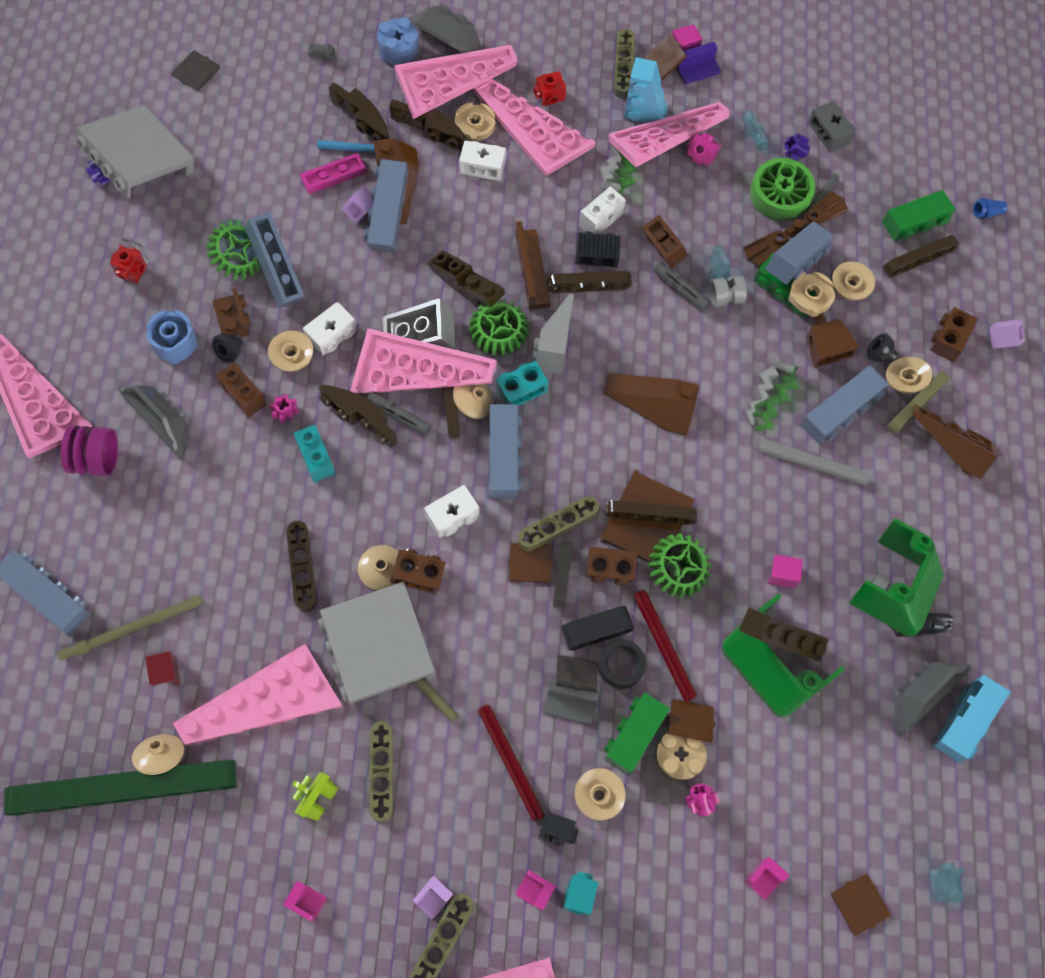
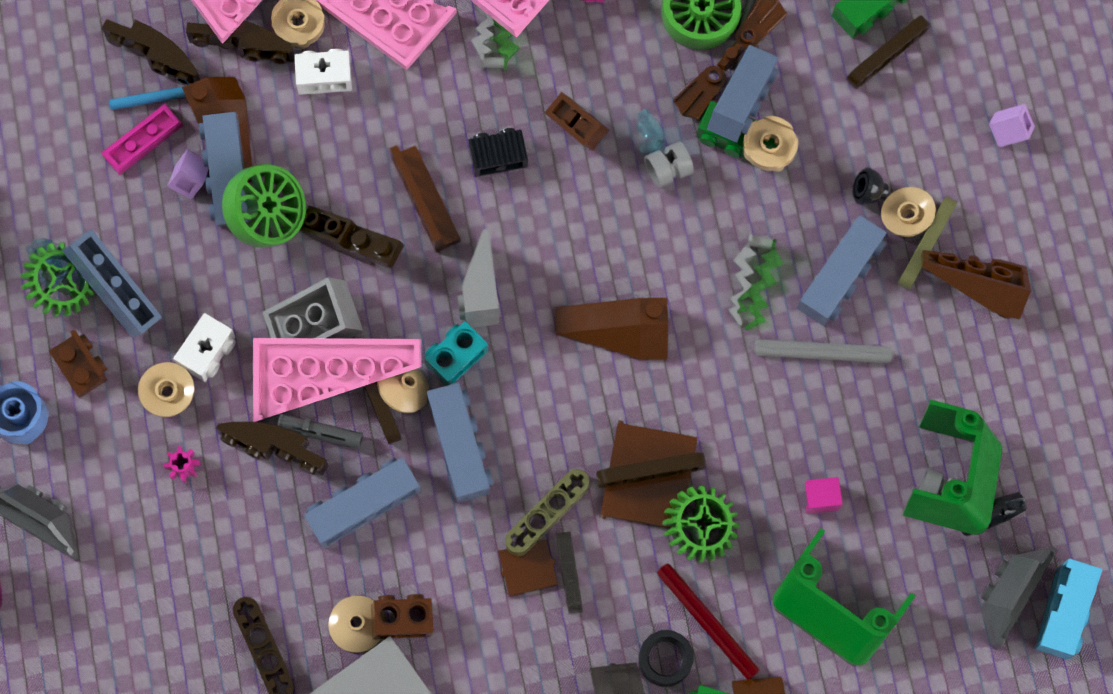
camera: 15 degrees left, 5 degrees up
(227, 346) = (88, 406): black brick -> none
(241, 390) = (123, 456): reddish brown brick -> none
(314, 453) = (236, 510): teal brick -> none
(407, 236) = (268, 197): none -> bright green piece
(414, 475) = (362, 502): none -> sand blue brick
(459, 502) = (423, 519): white brick -> none
(504, 337) = (418, 291): bright green gear -> none
(589, 281) = (499, 197): dark brown beam -> none
(597, 628) = (626, 624): black beam -> none
(602, 211) = (490, 102): white brick -> none
(611, 558) = (621, 538): reddish brown brick -> none
(662, 271) = (583, 158): dark grey pin -> none
(784, 634) = (838, 576): dark brown brick -> none
(829, 341) = (805, 195): reddish brown torso -> none
(858, 275) = (818, 97): tan dish -> none
(955, 335) = (953, 145): reddish brown brick -> none

